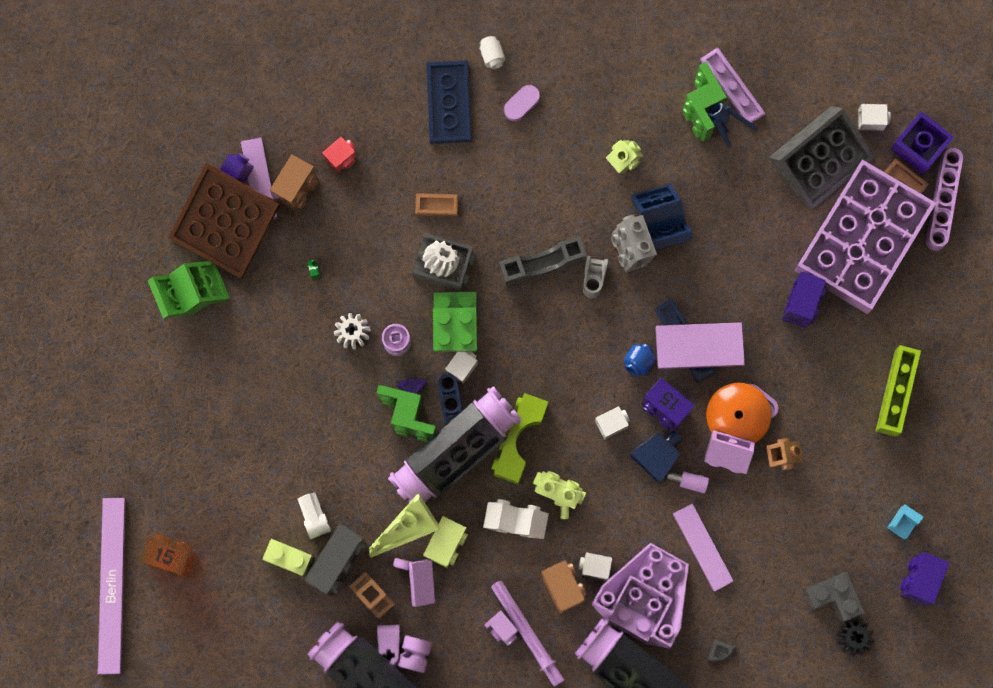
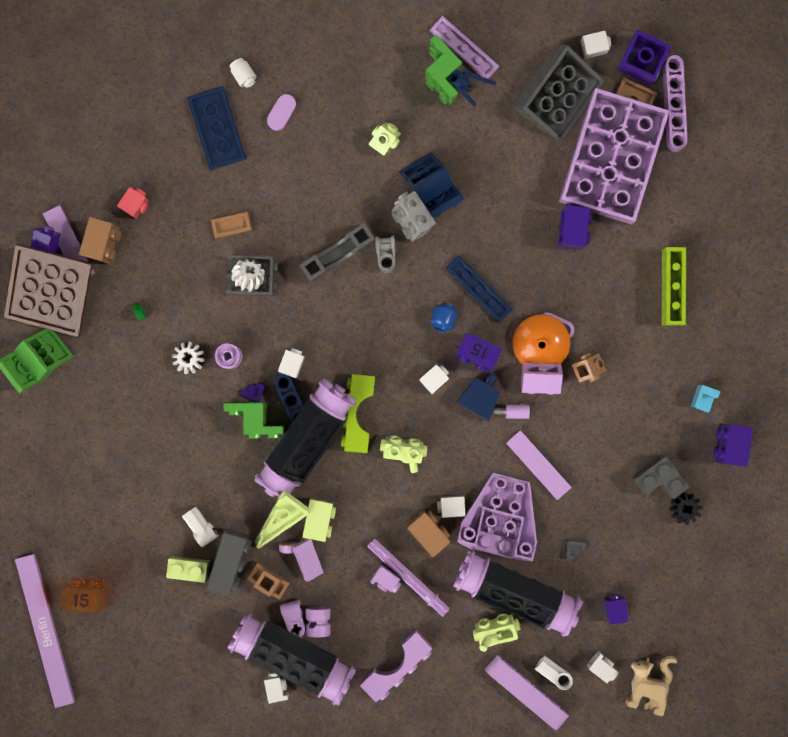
camera: 20 degrees left, 10 degrees up
(455, 322) = (275, 327): bright green bracket -> none
(525, 522) = (373, 485): white brick -> none
(699, 345) = (493, 292): lavender tile -> none

